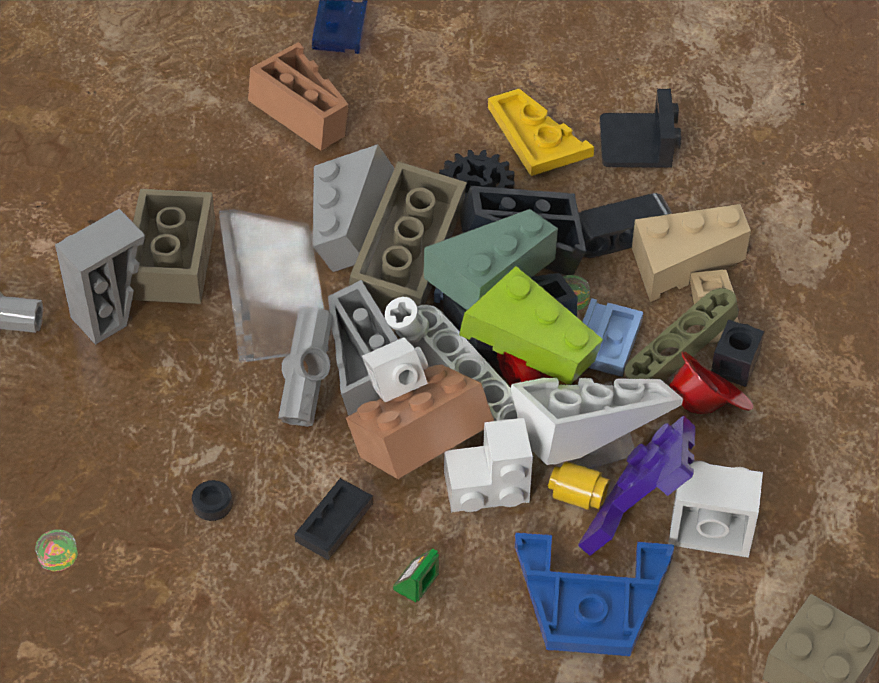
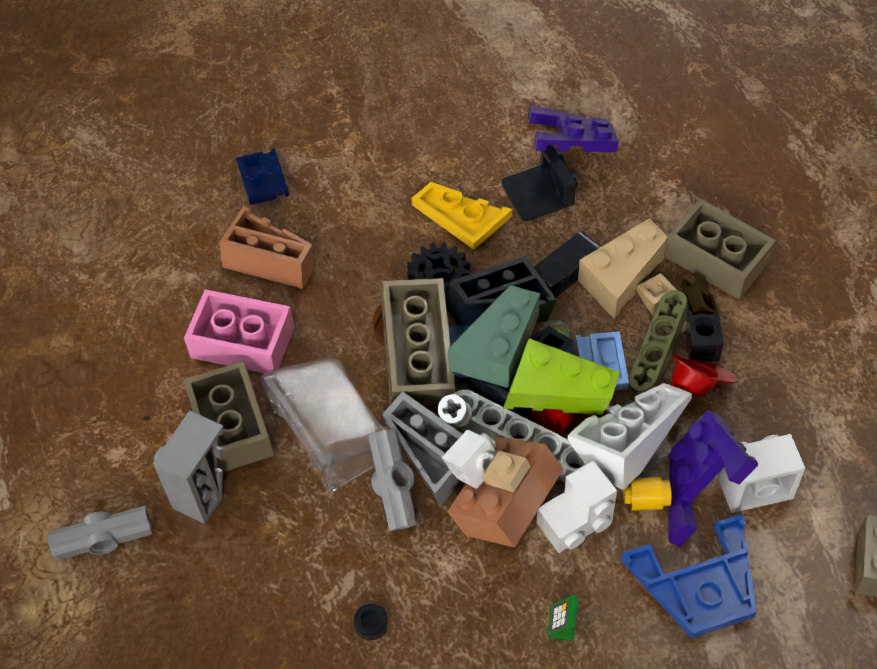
camera: 20 degrees left, 5 degrees up
(229, 163) = (238, 330): none -> bright pink brick
(334, 519) = (476, 598): black plate -> none
(346, 203) = (352, 328): light grey wedge -> none
(420, 391) = (506, 471): none -> tan plate
(709, 86) = (574, 130): none -> dark purple wing
(757, 309) = (700, 299): none -> dark brown plate
(808, 265) = (719, 248): none -> dark tan brick

